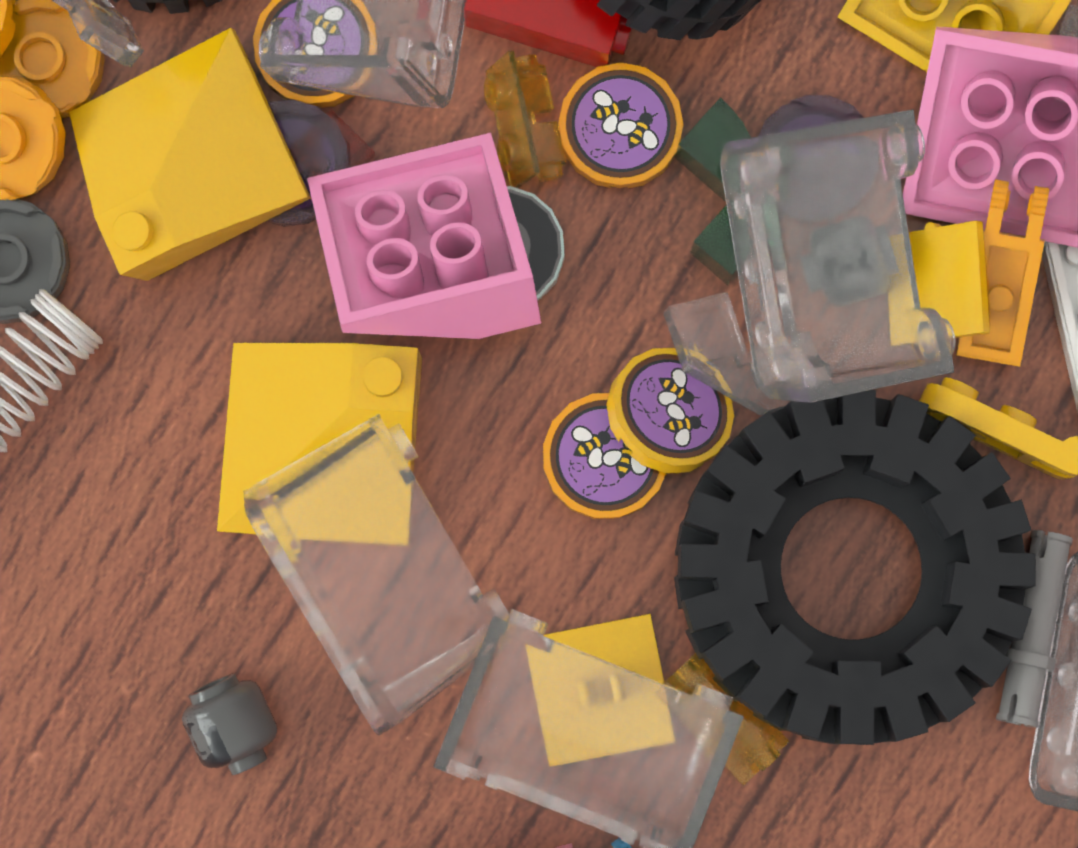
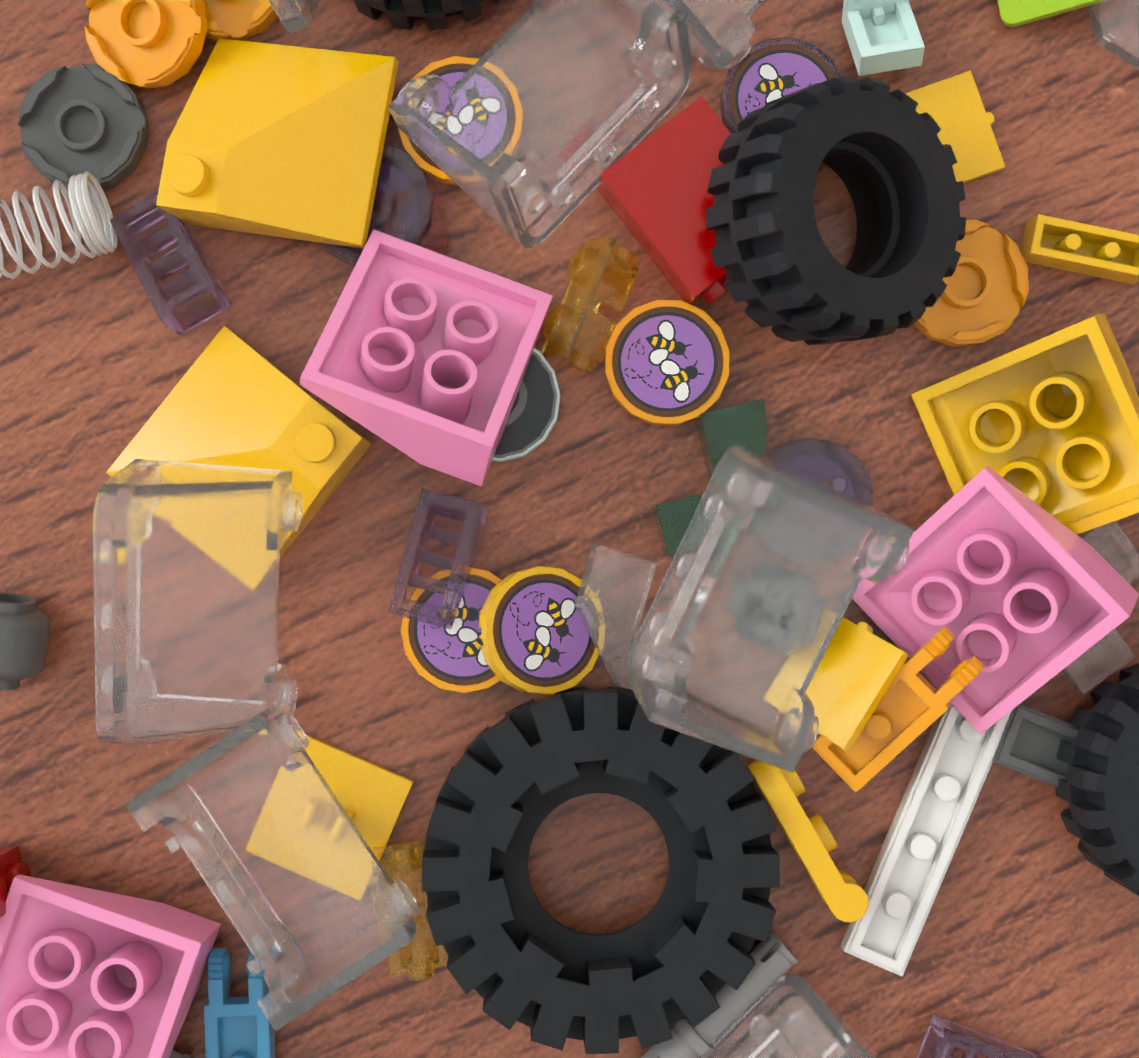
camera: 30 degrees right, 5 degrees up
(189, 338) = (191, 296): none -> slope
(527, 361) = (428, 508): none -> slope

